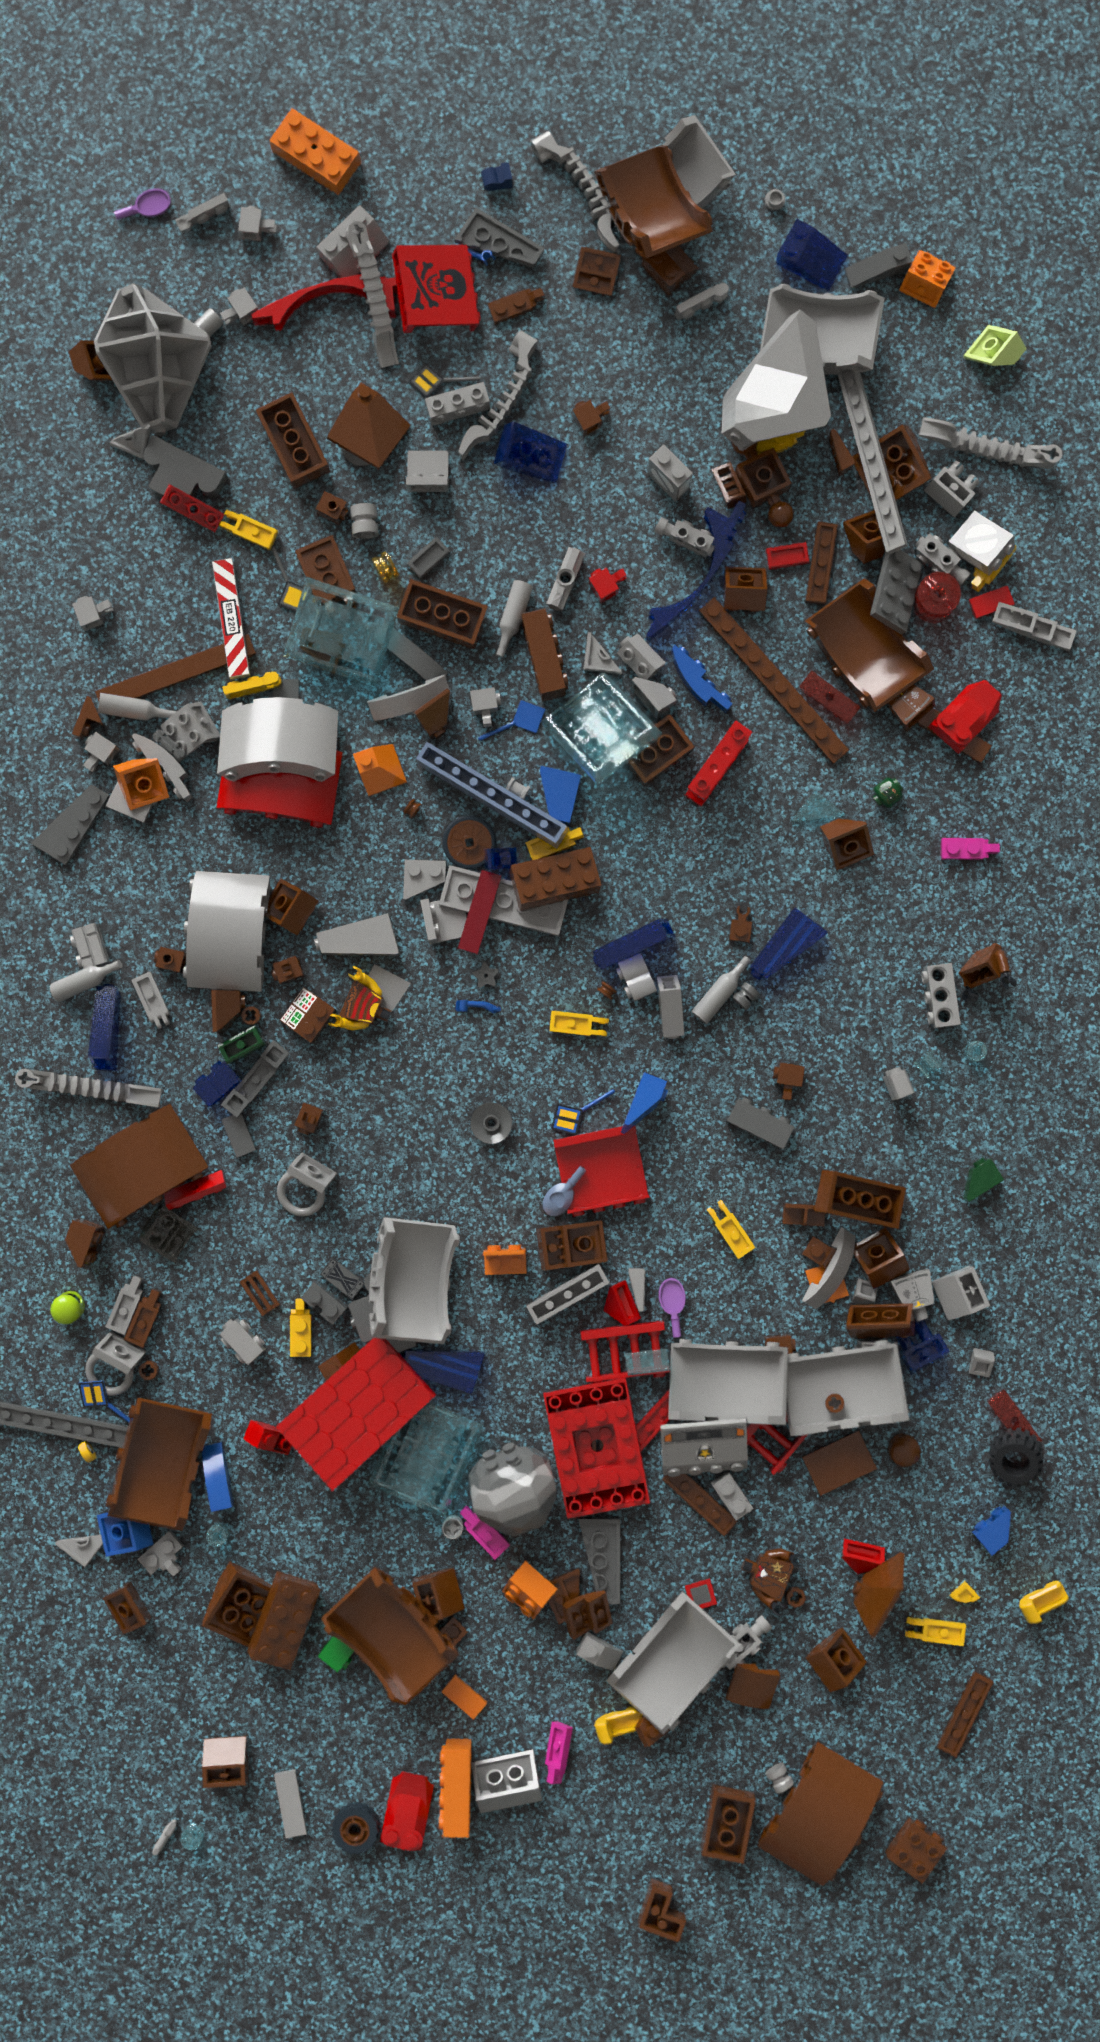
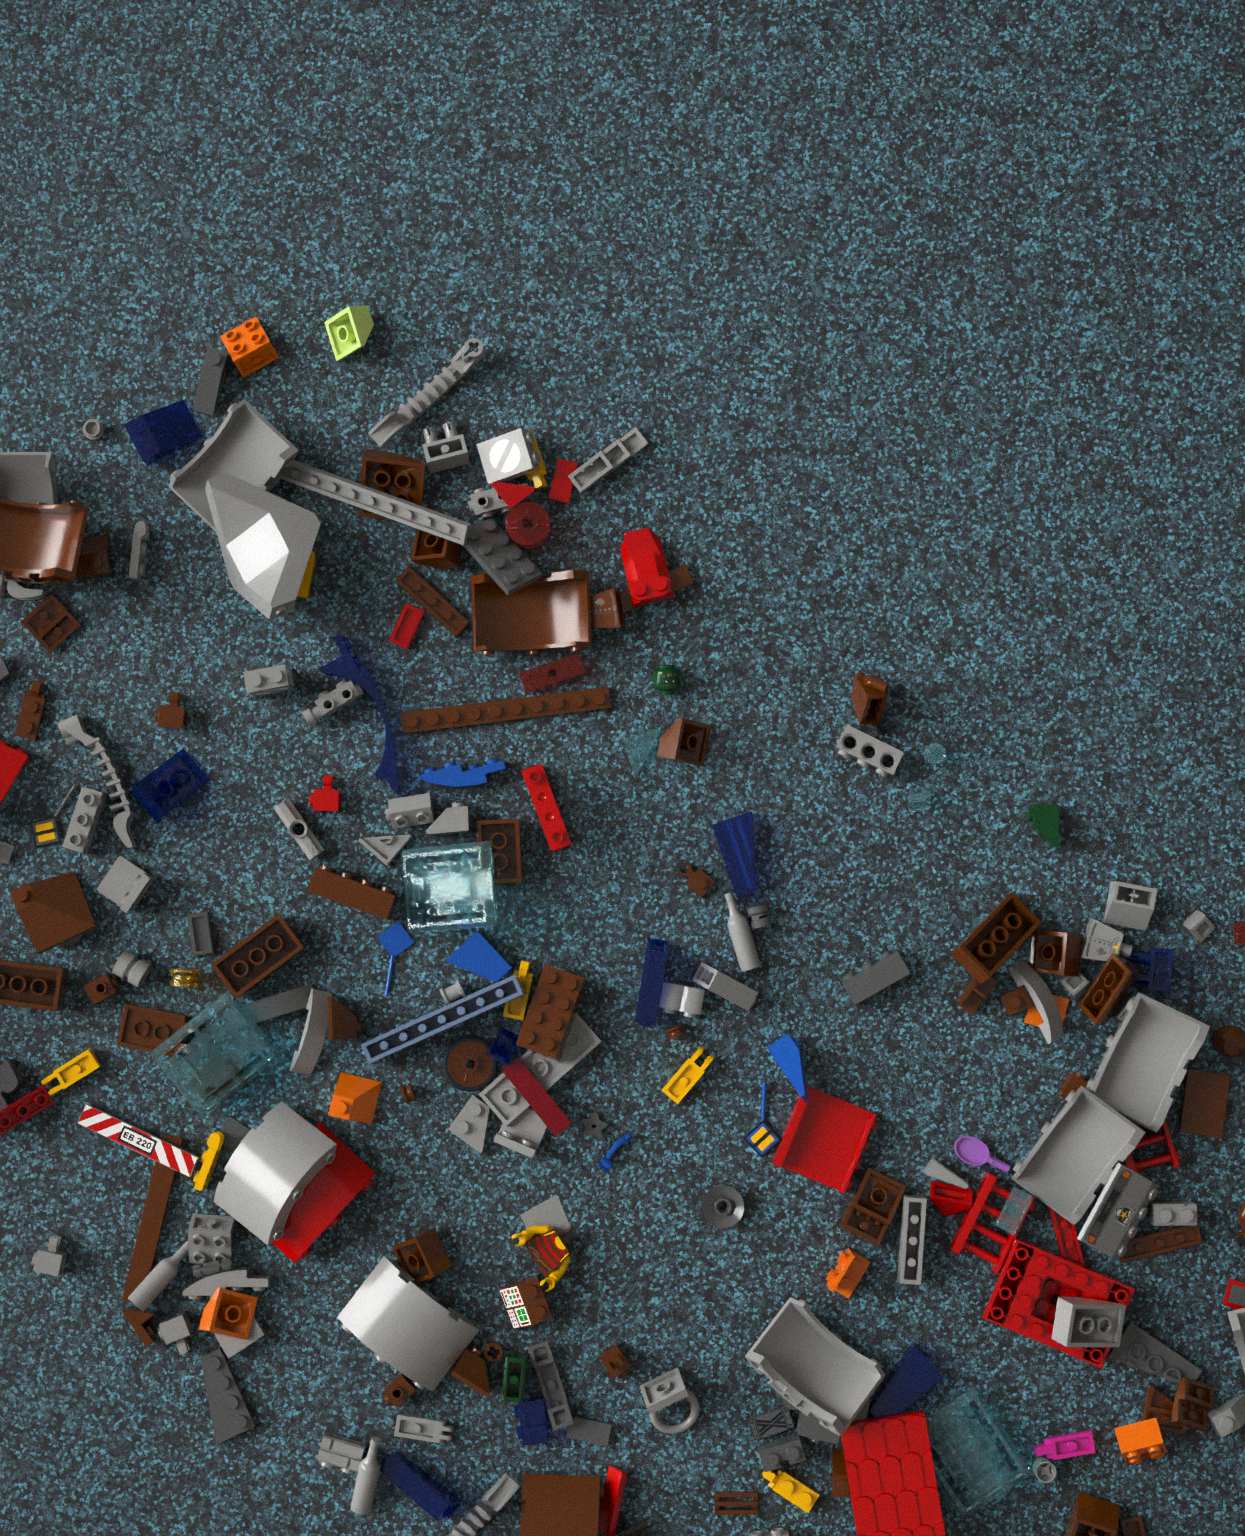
camera: 55 degrees left, 0 degrees up
(287, 970) = (476, 1294): reddish brown brick -> none
(291, 592) = (150, 1071): piece -> none
(365, 937) = (491, 1210): light grey slope -> none
(485, 702) = (359, 970): light grey brick -> none
(511, 616) = (298, 894): light grey piece -> none
(512, 1489) = (1047, 1399): rock -> none
(561, 1195) = (824, 1187): sand blue piece -> none
(598, 1481) = (1088, 1322): none -> light grey slope
(732, 497) = (328, 641): reddish brown slope -> none
(732, 1231) = (951, 1062): yellow hinge -> none
(745, 588) = (411, 681): reddish brown slope -> none
(763, 481) = (330, 603): reddish brown brick -> none
(789, 1076) = (851, 926): reddish brown brick -> none
(830, 1408) = (1155, 1082): reddish brown bush -> none
(842, 457) = (354, 523): reddish brown slope -> none
(898, 1083) = (919, 839): light grey brick -> none
(955, 563) = (512, 493): none -> red slope
(967, 848) = (758, 644): dark pink hinge -> none

